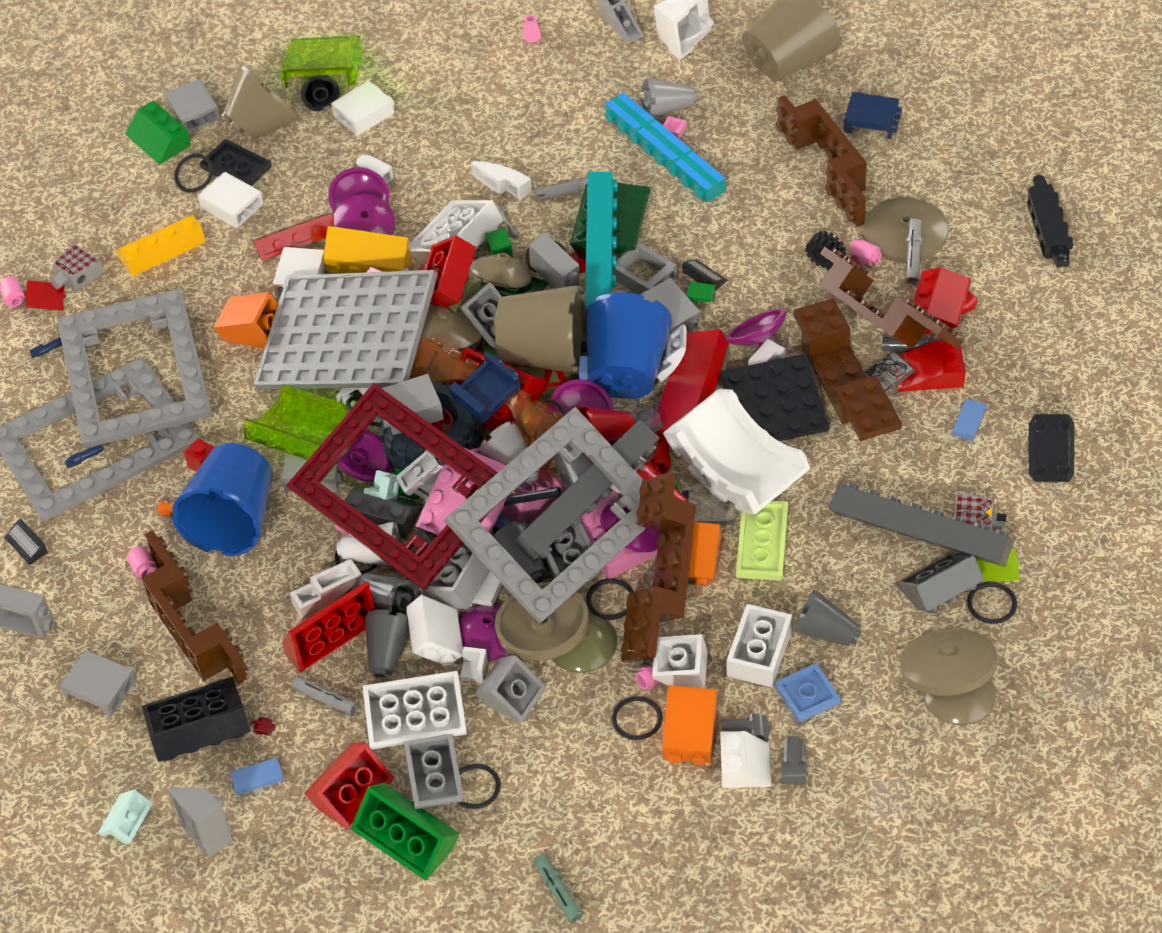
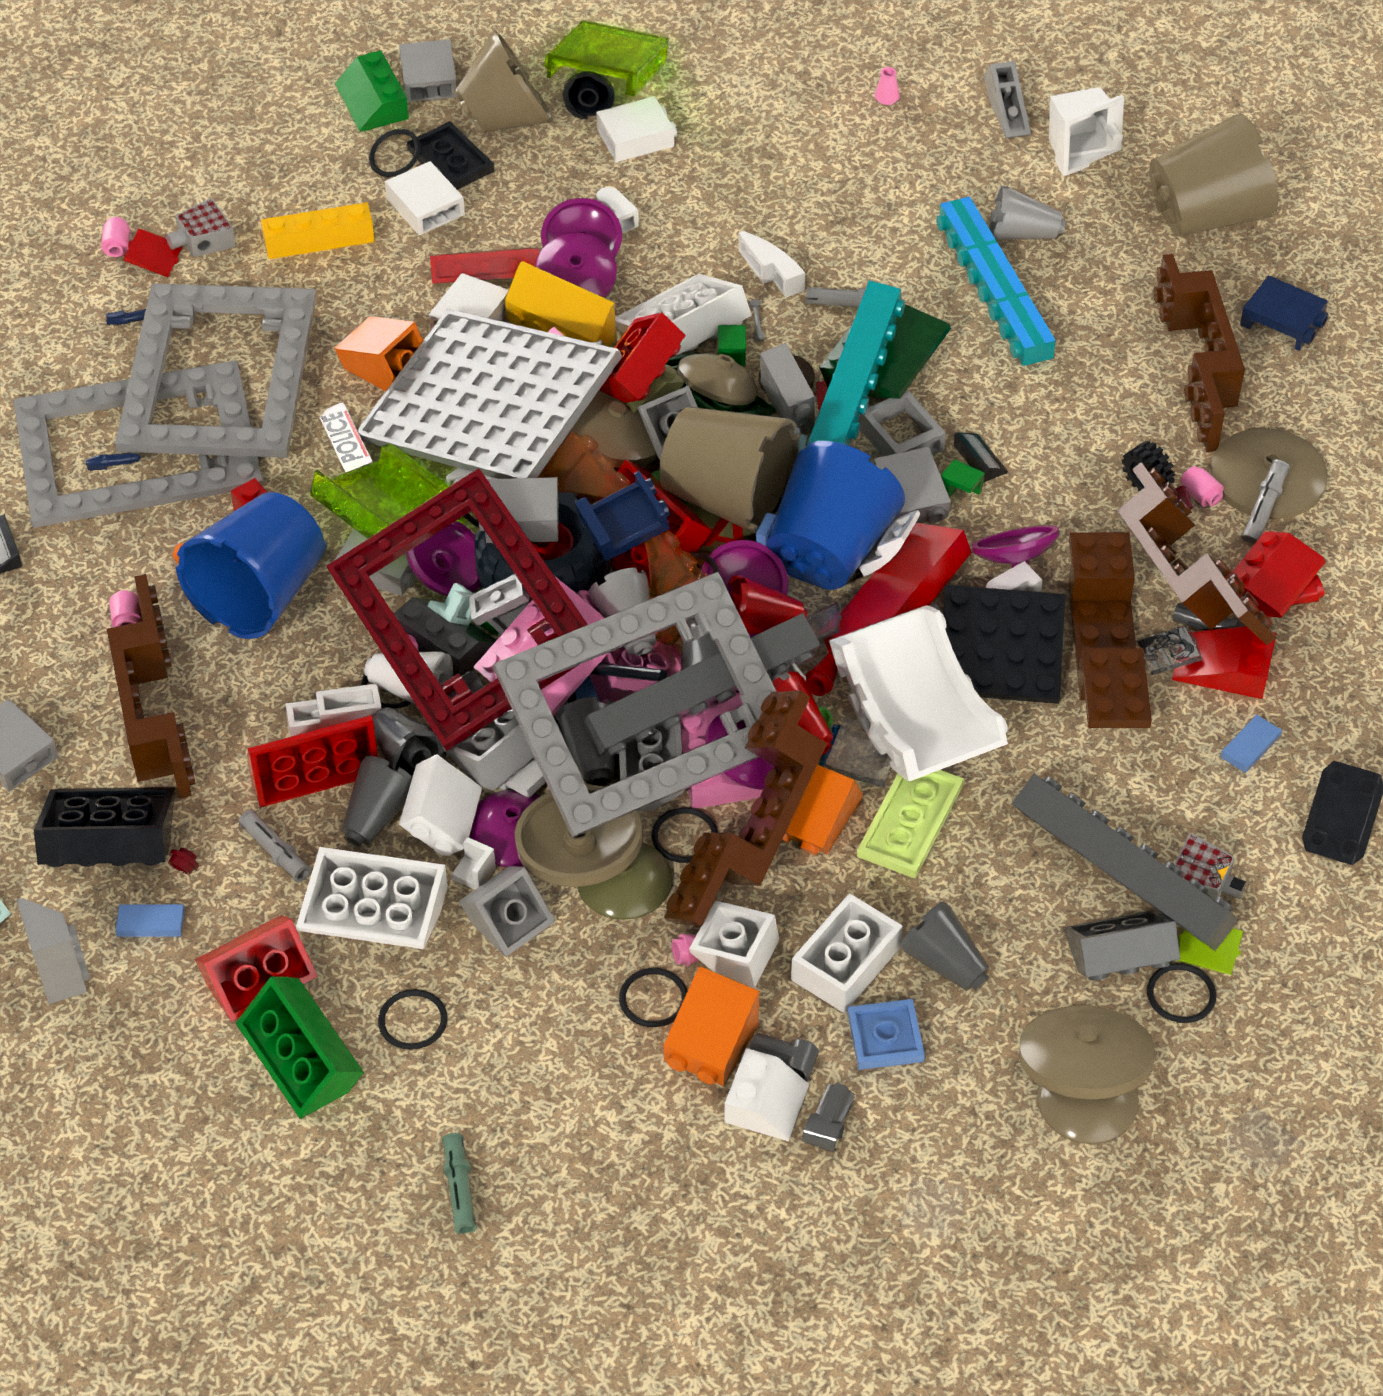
camera: 15 degrees right, 0 degrees up
(247, 390) = (345, 437): none -> sticker
(433, 771) = (363, 983): light grey slope -> none
(675, 126) = (1021, 258): bright pink plate -> none

